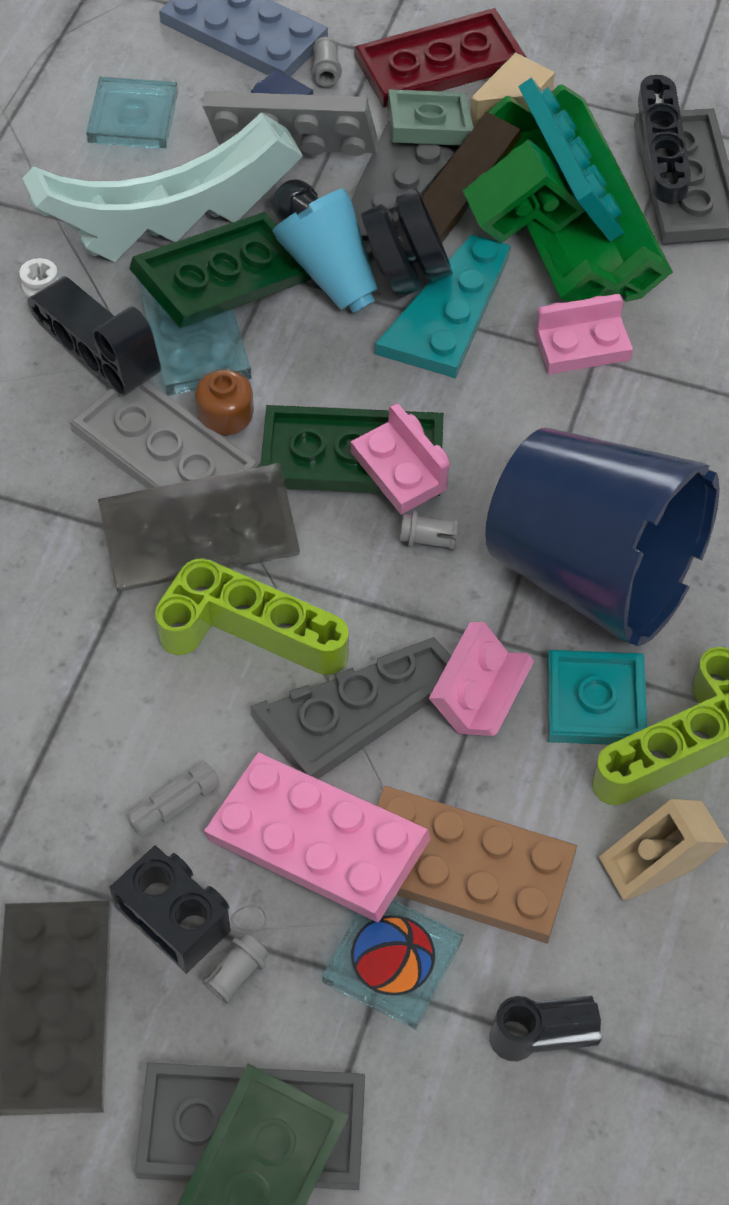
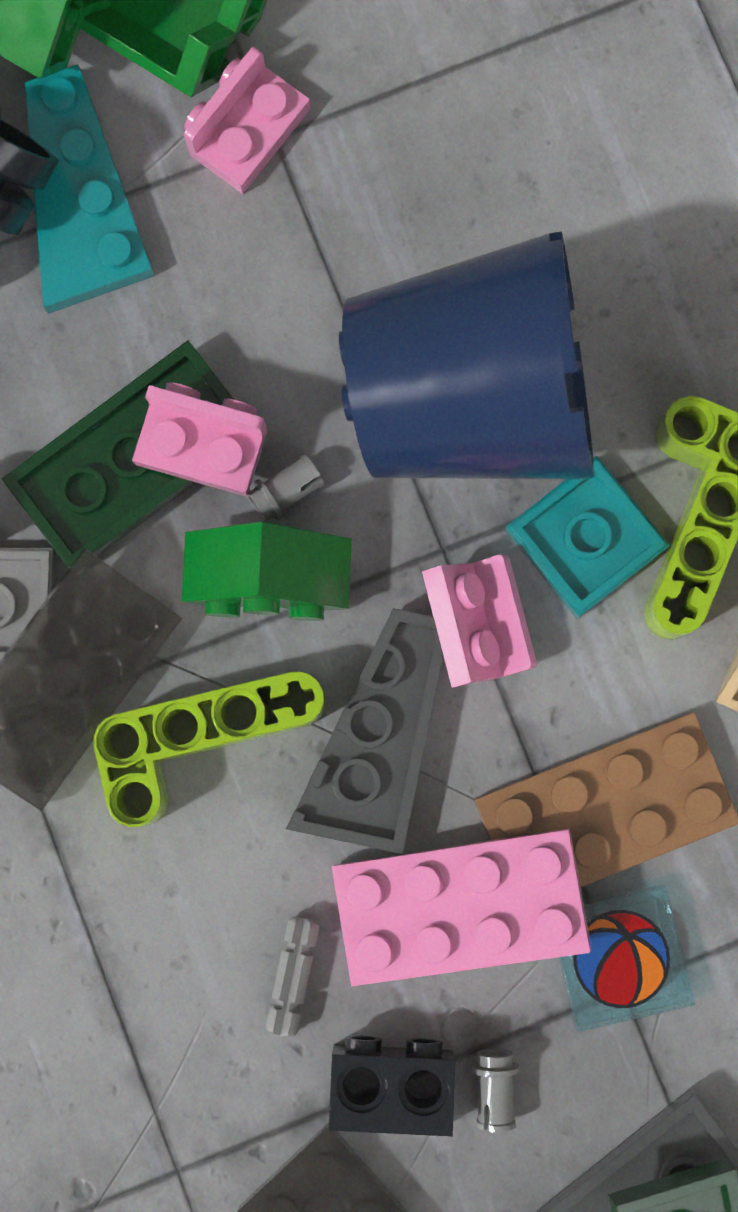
camera: 35 degrees left, 25 degrees up
(381, 552) = (266, 570): none -> green brick

